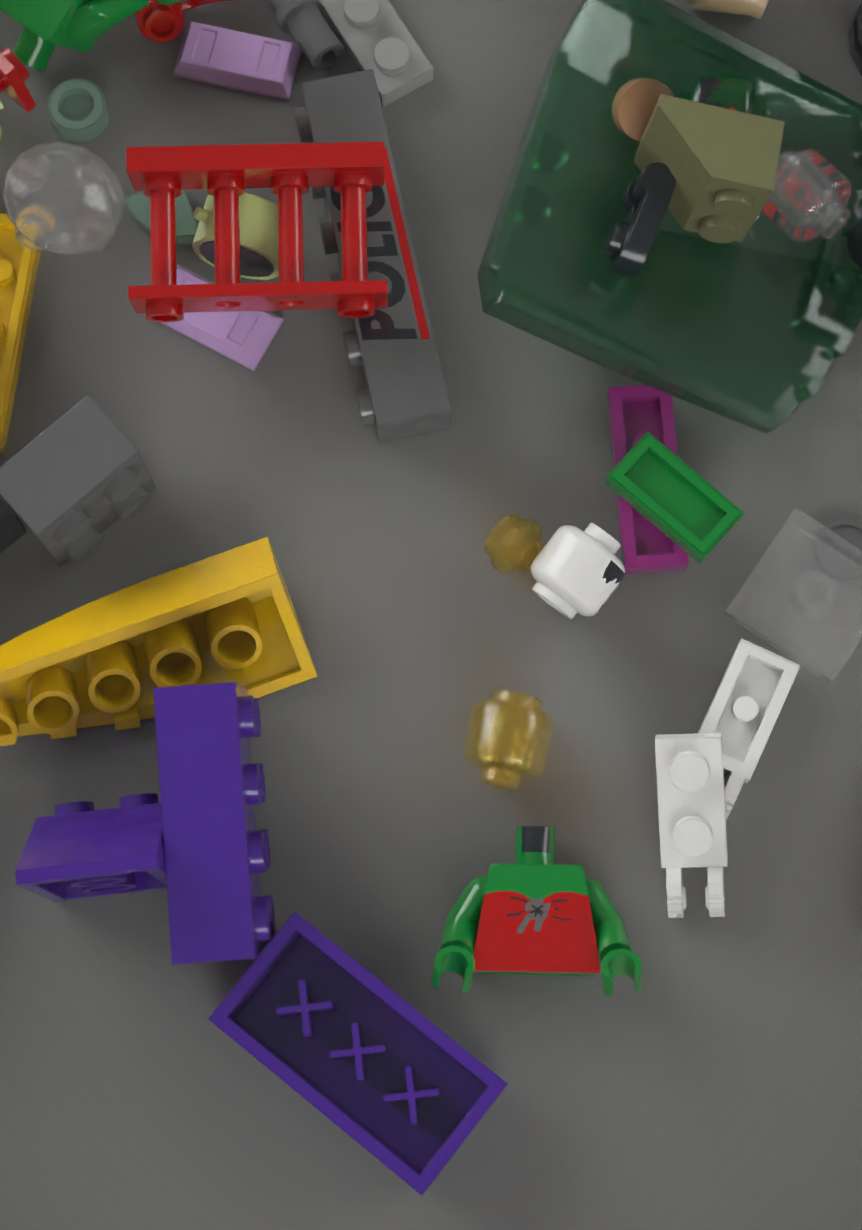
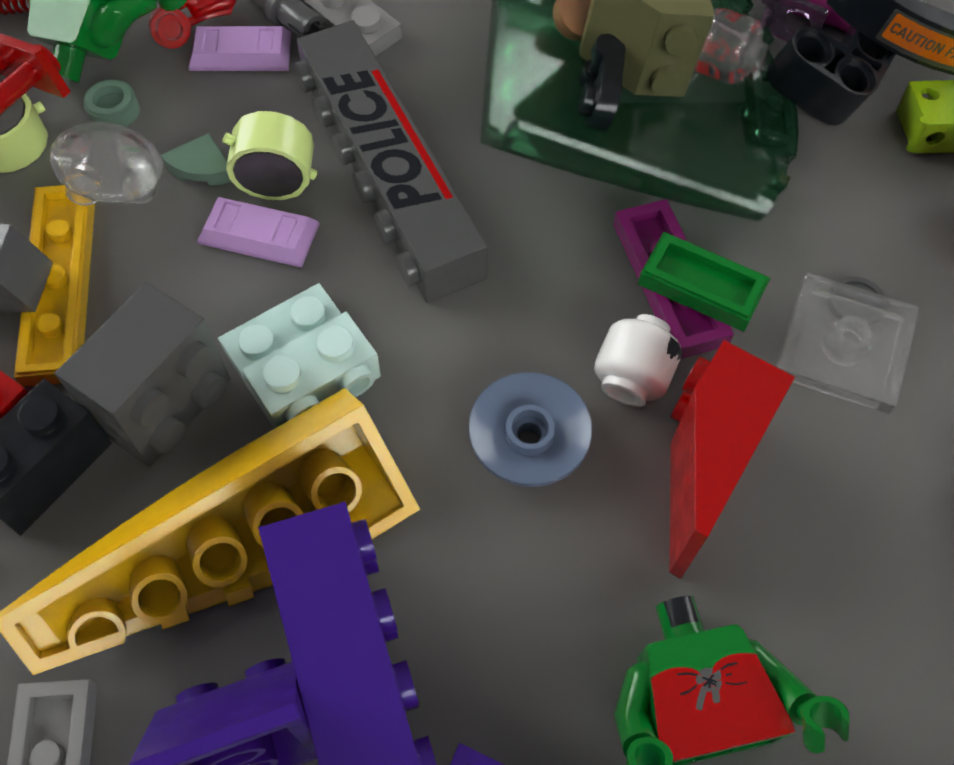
camera: 15 degrees left, 15 degrees down
(225, 174) = (274, 83): red fence -> none
(232, 482) = (300, 355): none -> light aqua plate
(452, 589) = (530, 404): none -> sand blue dish
(508, 738) = (621, 522): clear yellow head -> none
(514, 543) = (572, 351): clear yellow plate -> none
(635, 665) = (719, 428): none -> red slope
(692, 815) = (824, 556): white hinge -> none
(747, 710) = (827, 468): white hinge -> none

